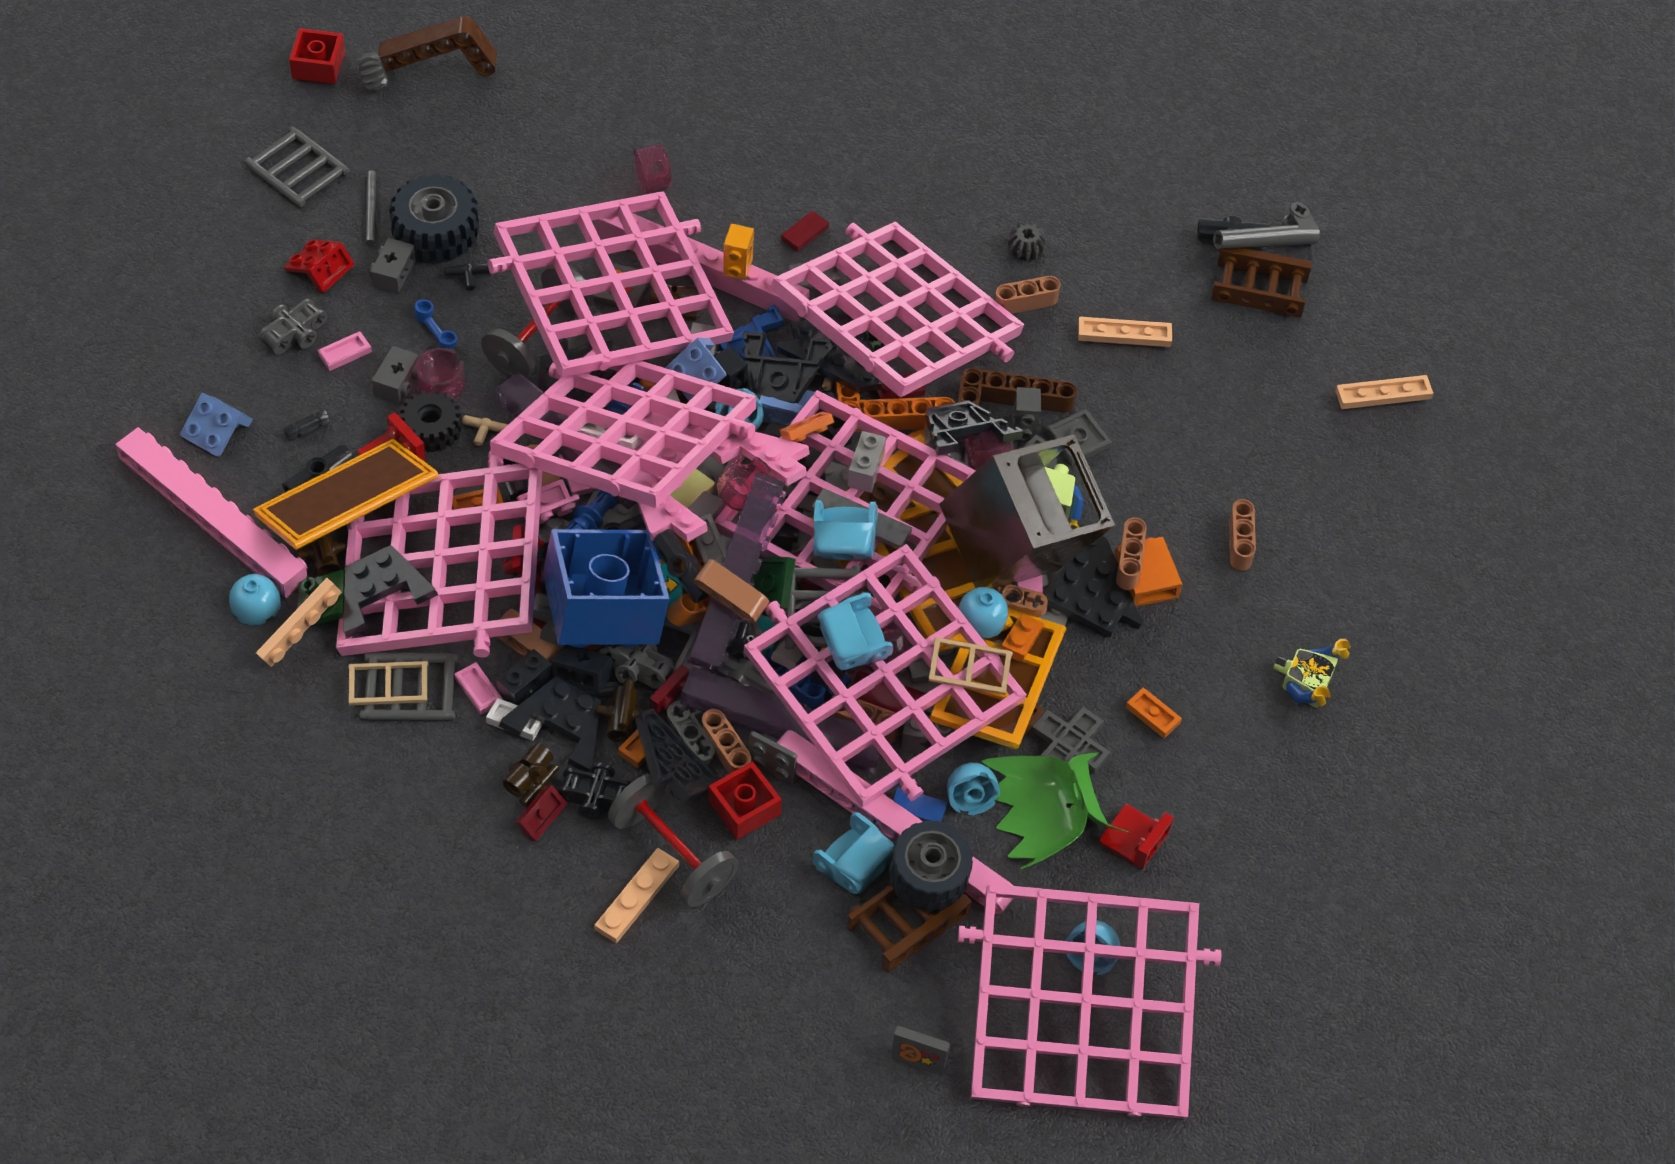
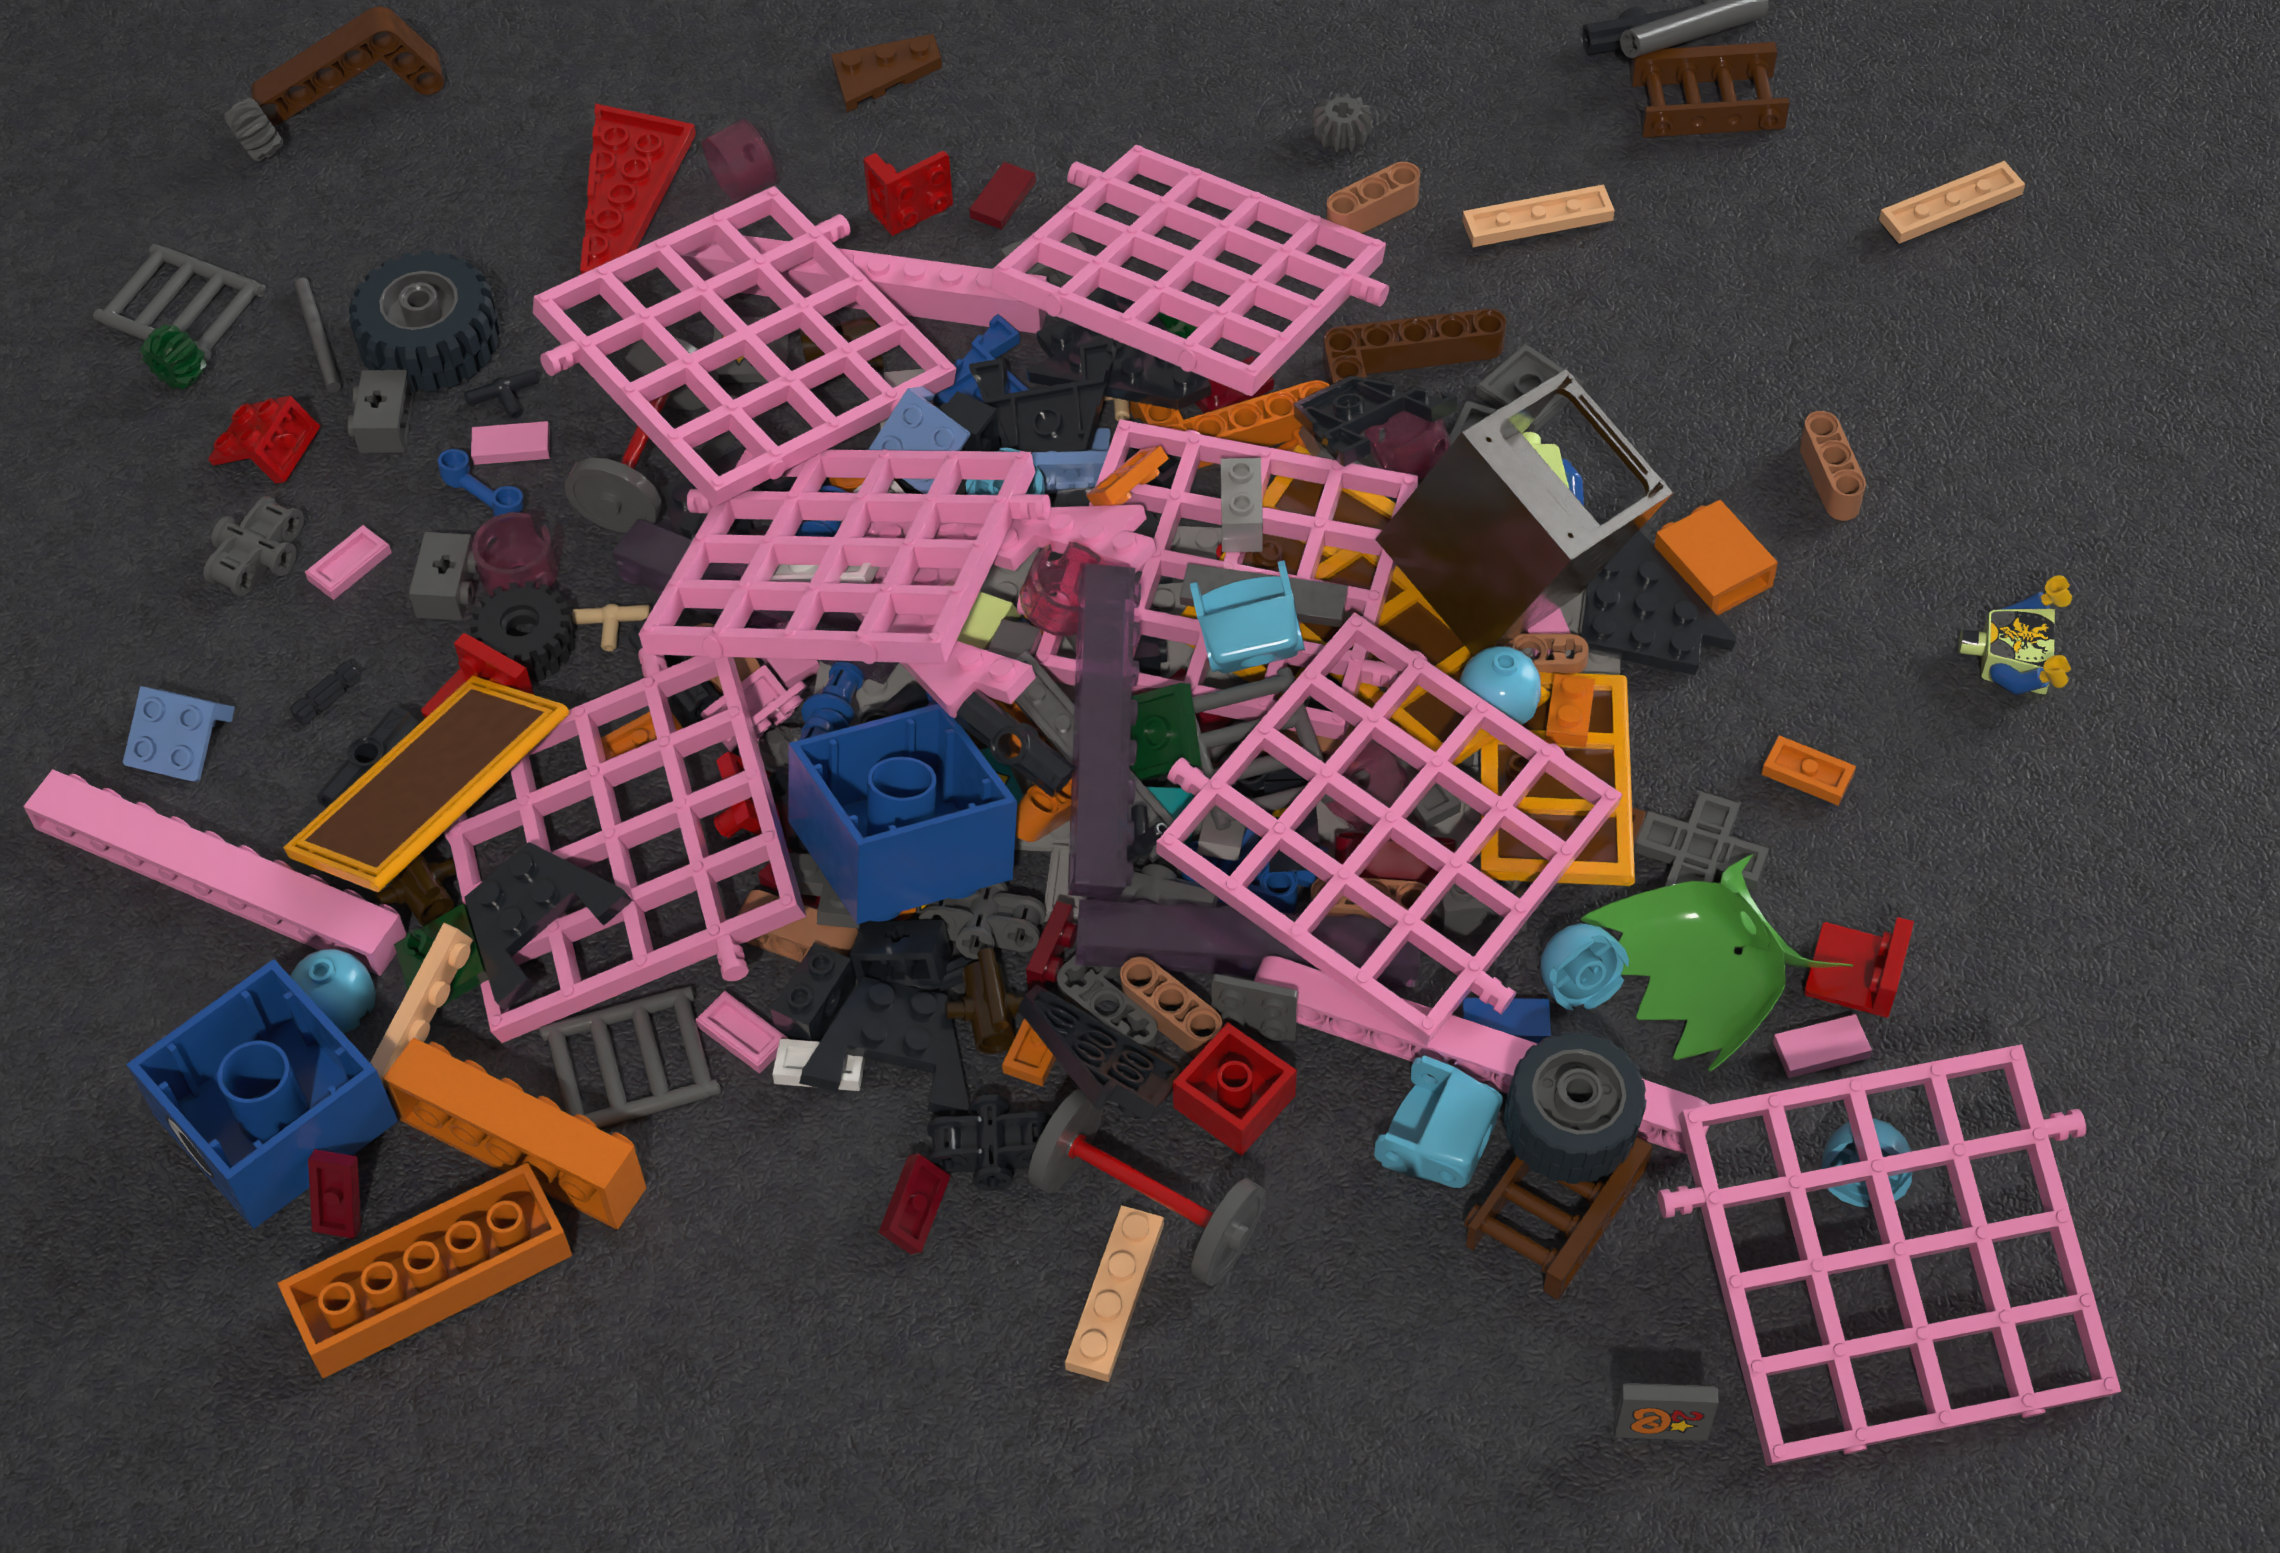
camera: 10 degrees left, 0 degrees up
(197, 645) = (260, 1089): none -> blue brick
(219, 713) = (334, 1194): none -> dark red plate
(256, 770) = (424, 1270): none -> orange brick
(282, 199) = (173, 356): none -> dark green gear
(317, 56) = (159, 128): red brick -> none
(331, 708) = (509, 1128): none -> orange brick
(387, 699) = (602, 1091): tan window -> none
(461, 304) = (510, 443): none -> bright pink tile
(530, 774) = (875, 1145): dark brown pin -> none
(584, 160) = (627, 178): none -> red wing
(731, 591) = (1109, 761): nougat beam -> none
(738, 251) = (922, 244): light orange brick -> none
(752, 214) = (910, 195): none -> red bracket
(759, 130) = (878, 67): none -> reddish brown wing
(854, 633) = (1325, 774): medium azure piece -> none
(967, 683) = (1526, 801): tan window -> none
(1027, 411) = (1444, 366): dark grey brick -> none
(1097, 874) = (1822, 1046): none -> bright pink tile
(1131, 562) = (1687, 538): nougat beam -> none

